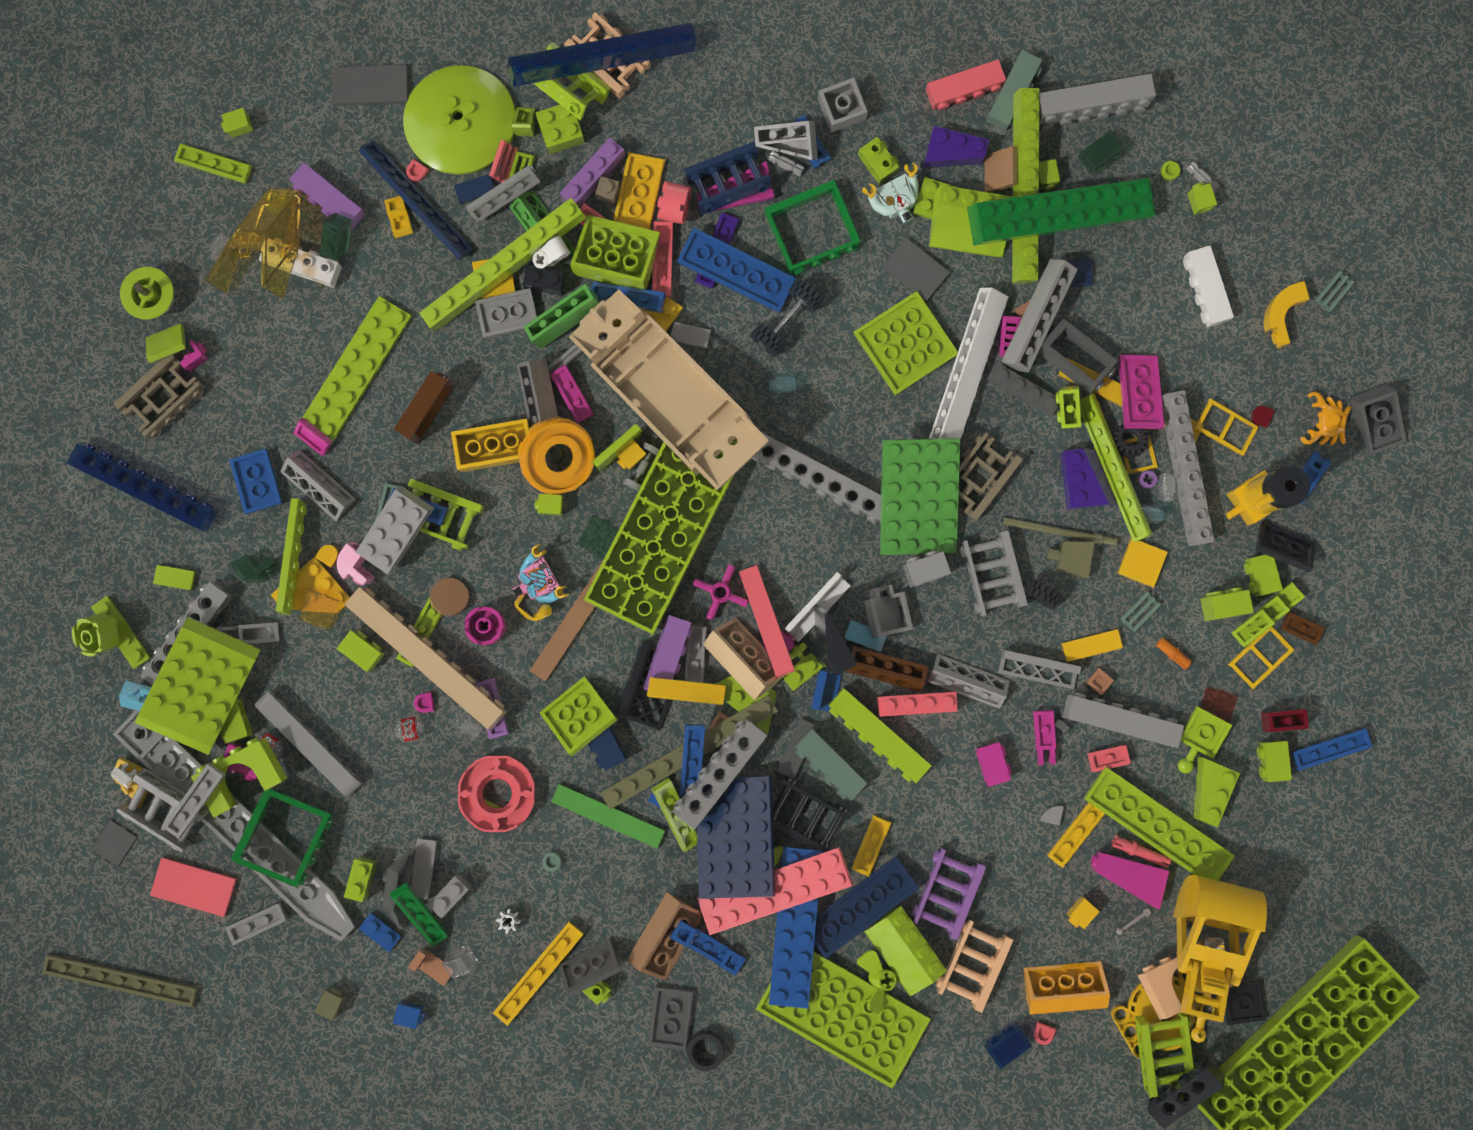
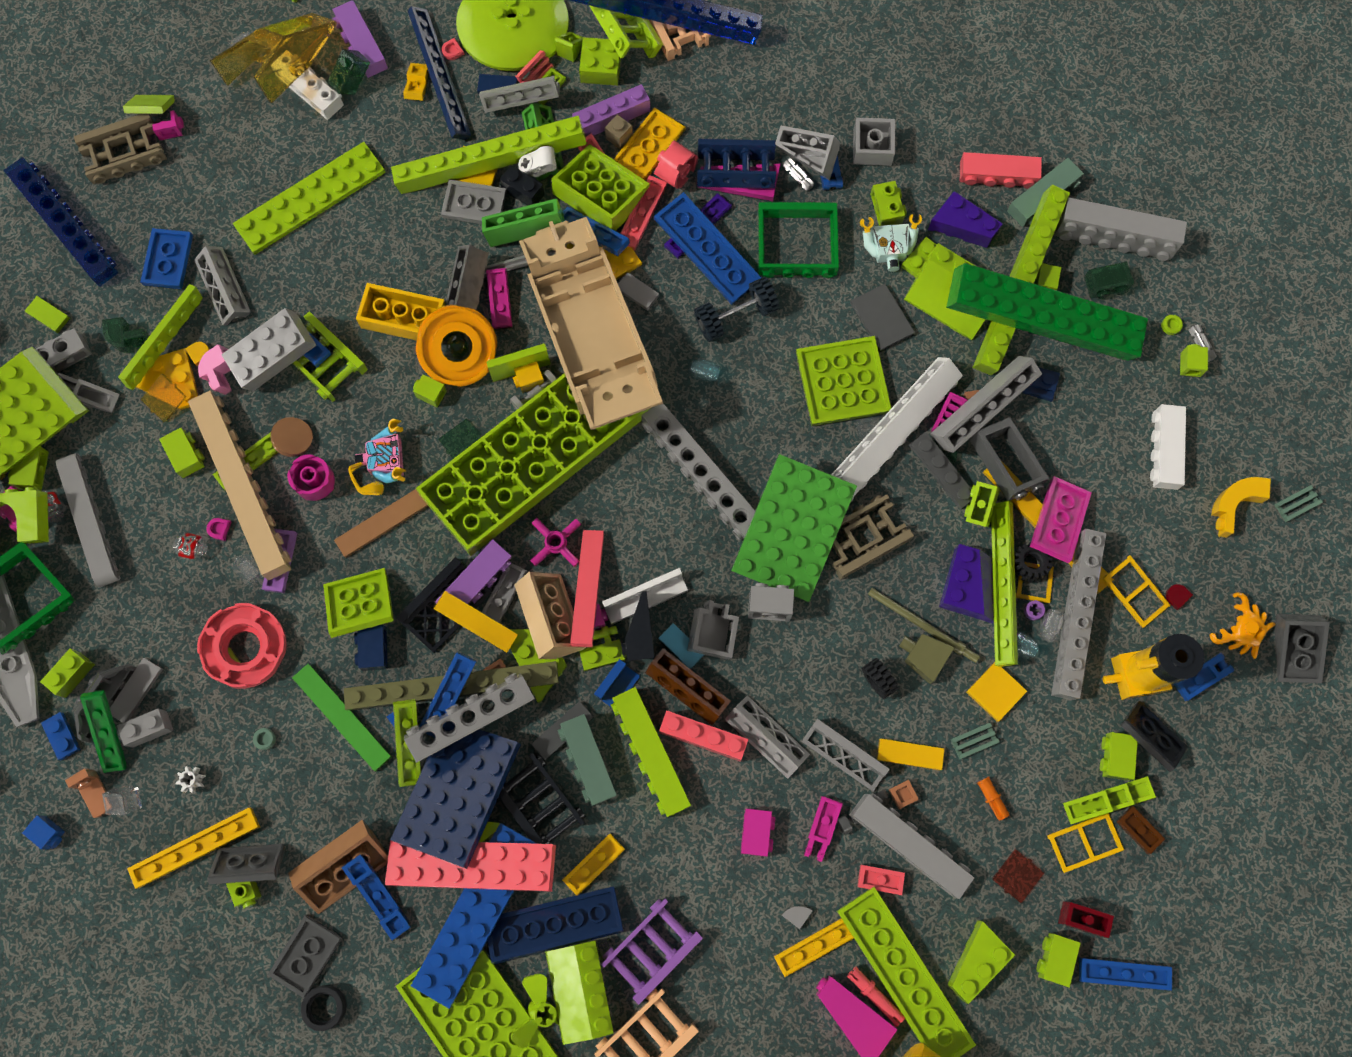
camera: 20 degrees right, 10 degrees down
(147, 293) = (156, 56): lime piece -> none
(312, 437) = (239, 240): dark pink tile -> none
(424, 406) = (354, 252): reddish brown window -> none
(1000, 169) = (1004, 255): medium nougat tile -> none
(1008, 560) = (857, 630): light grey fence -> none
(1082, 913) = (785, 1035): yellow brick -> none
(1203, 734) = (992, 897): lime plate -> none
(1232, 603) = (1068, 769): lime brick -> none

